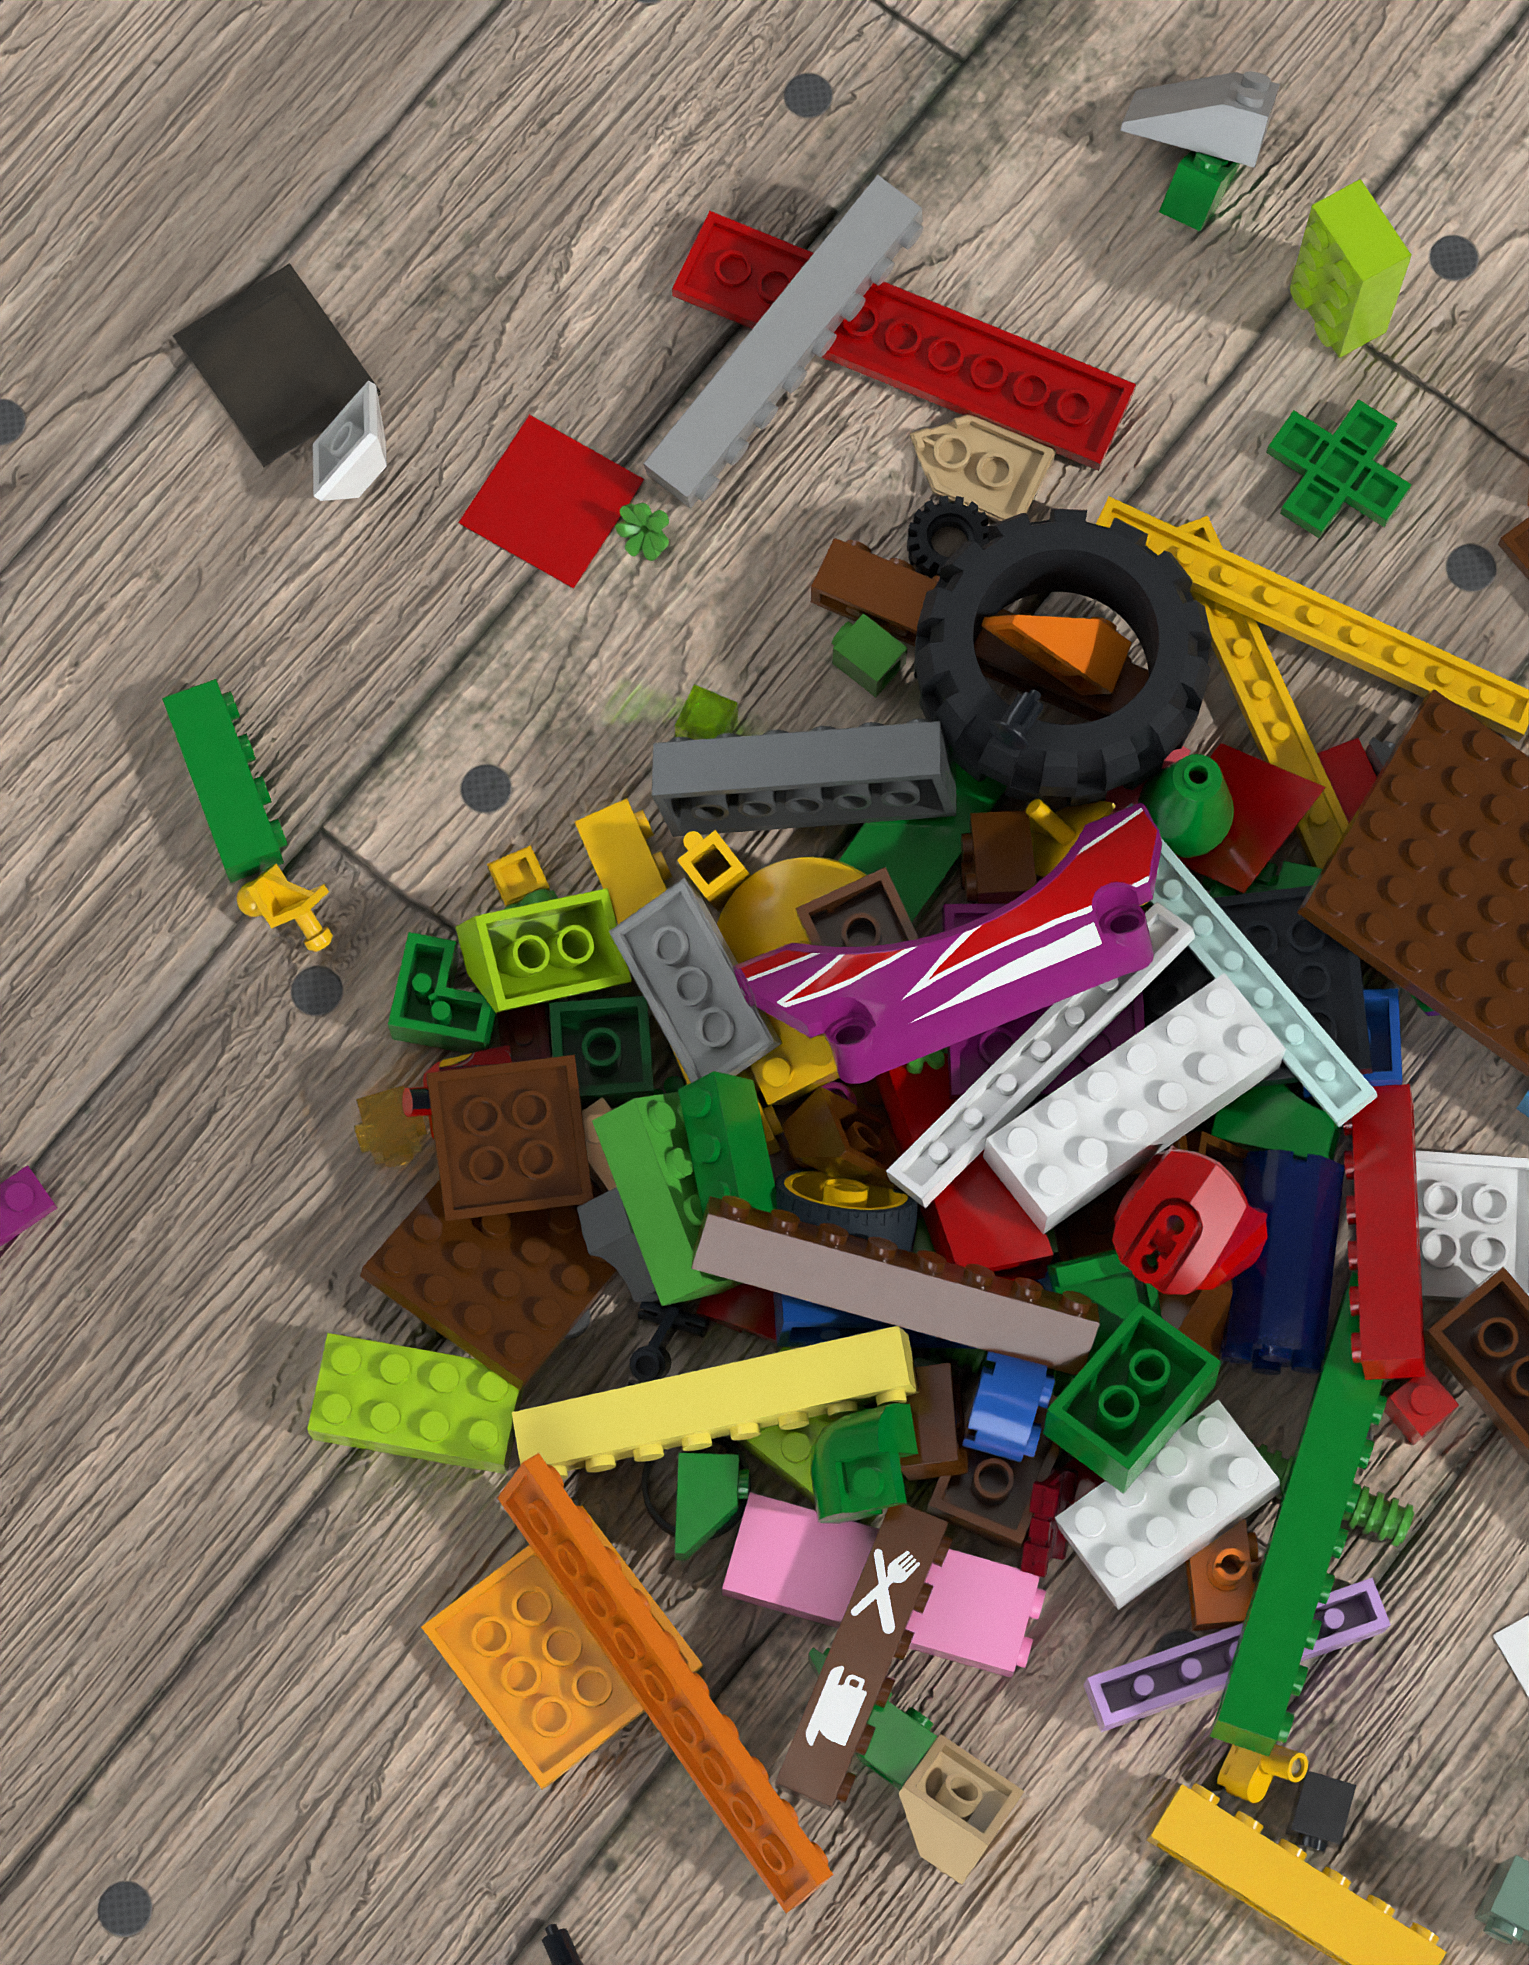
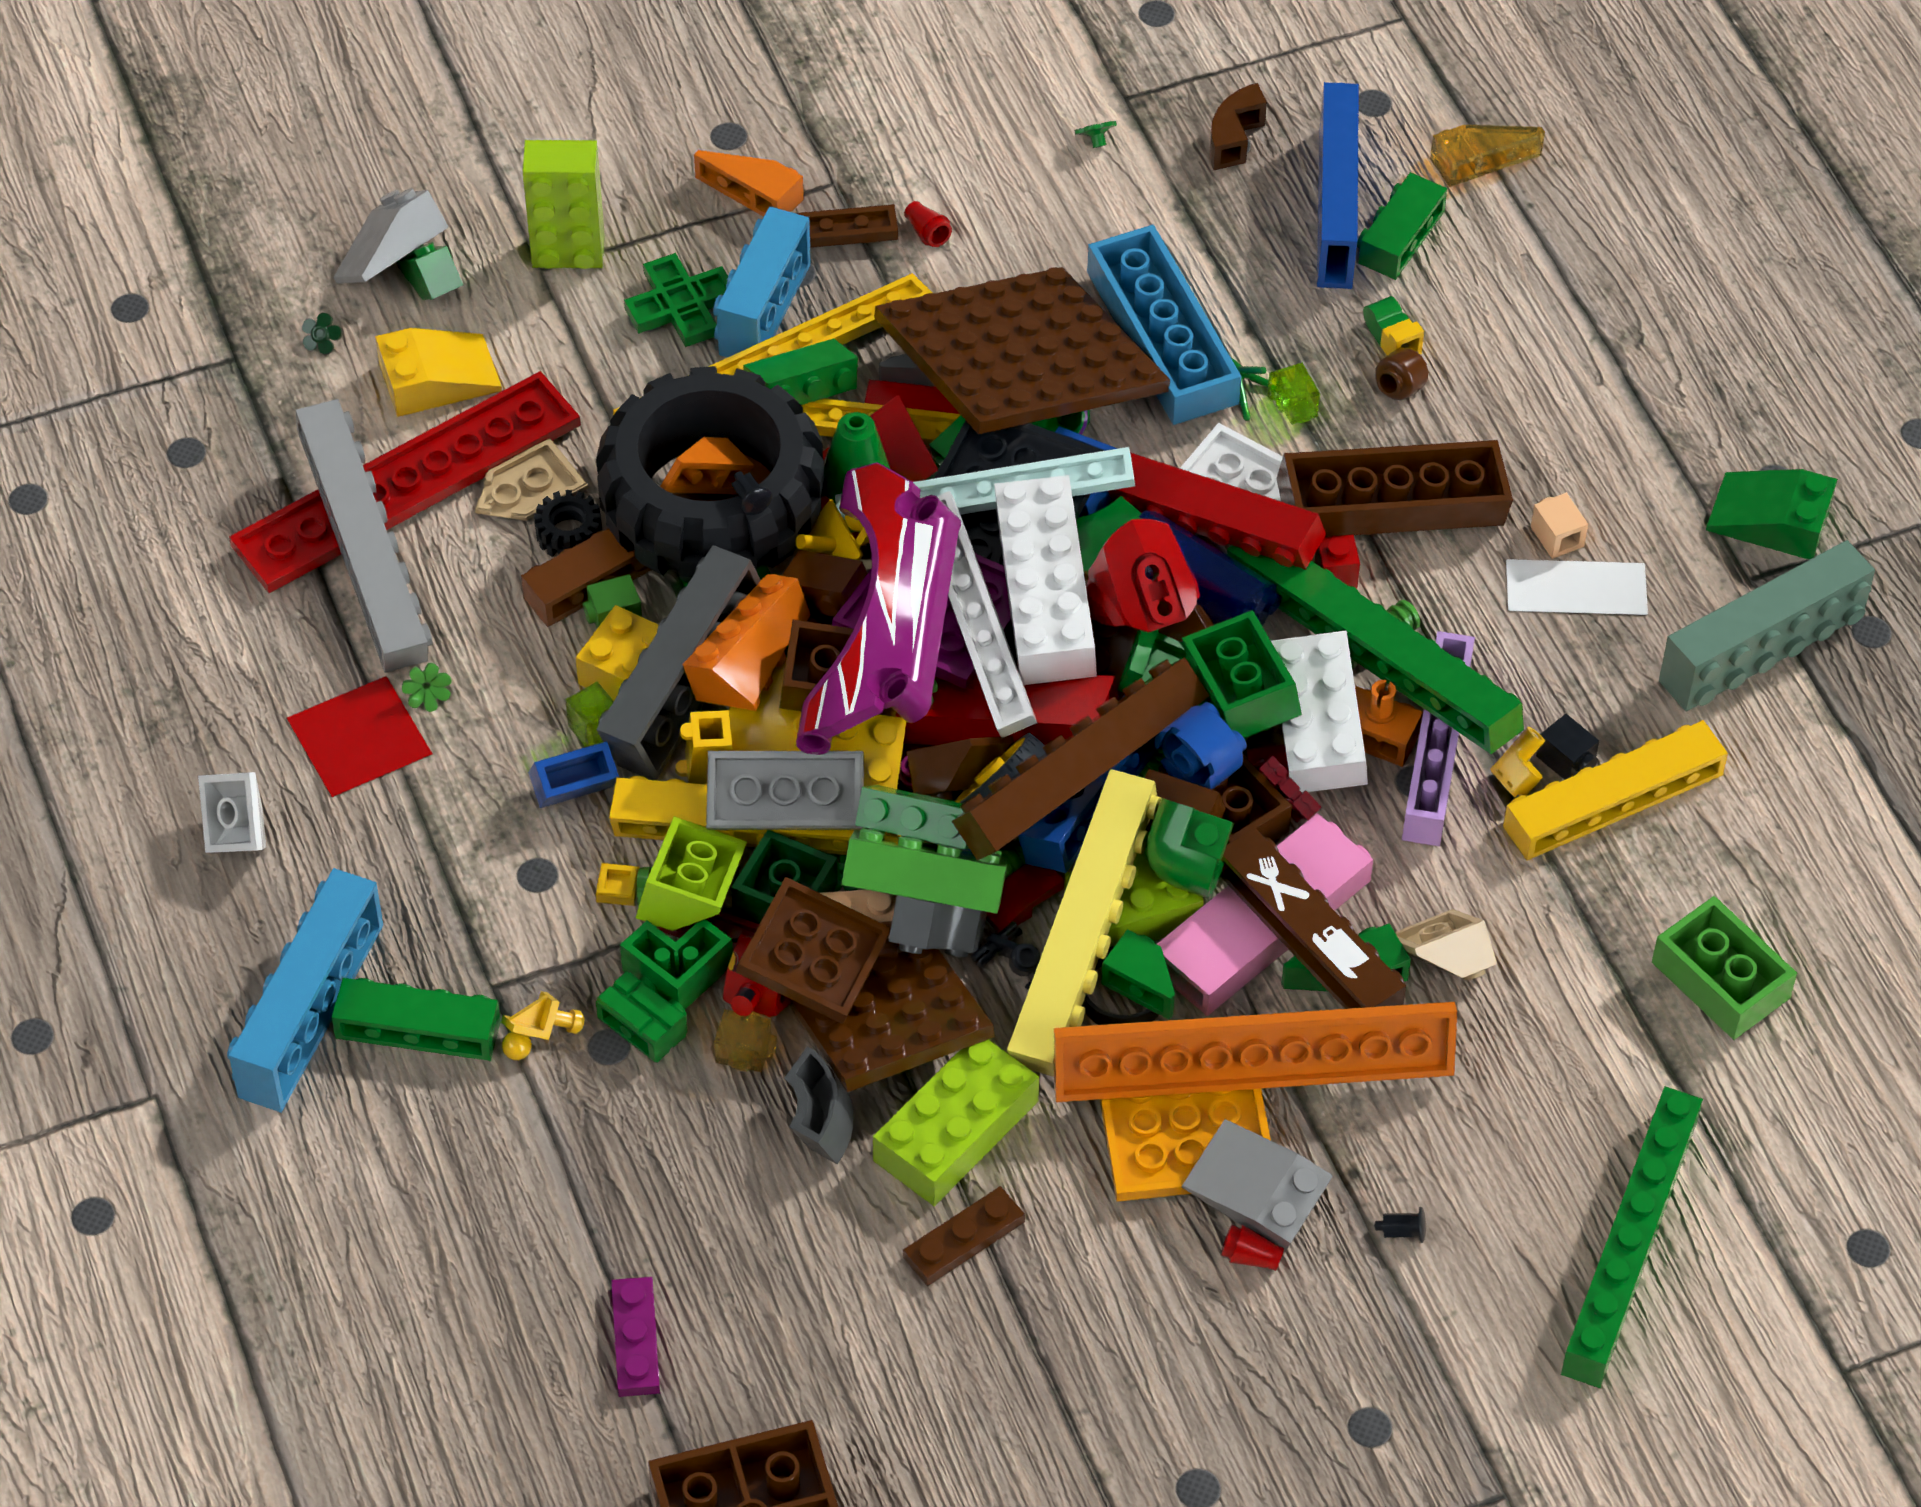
camera: 60 degrees left, 20 degrees down
(170, 651) = (303, 991): none -> dark azure brick
(274, 364) = (128, 846): clear smoke piece -> none
(289, 1492) = (963, 1235): none -> reddish brown plate
(328, 1265) = (823, 1106): none -> dark grey brick
(359, 1004) = (642, 1015): none -> green brick
(438, 1807) = (1251, 1249): none -> red cone
(508, 1775) = (1257, 1183): none -> light grey slope
(609, 749) = (573, 774): none -> blue piece
(803, 694) = (614, 650): none -> yellow brick
(847, 834) = (747, 645): none -> orange wedge
(1045, 127) = (321, 333): none -> dark green plant
(1073, 274) = (434, 368): none -> yellow slope
(1297, 664) = (810, 371): none -> green brick
(1403, 545) = (763, 282): none -> dark azure brick

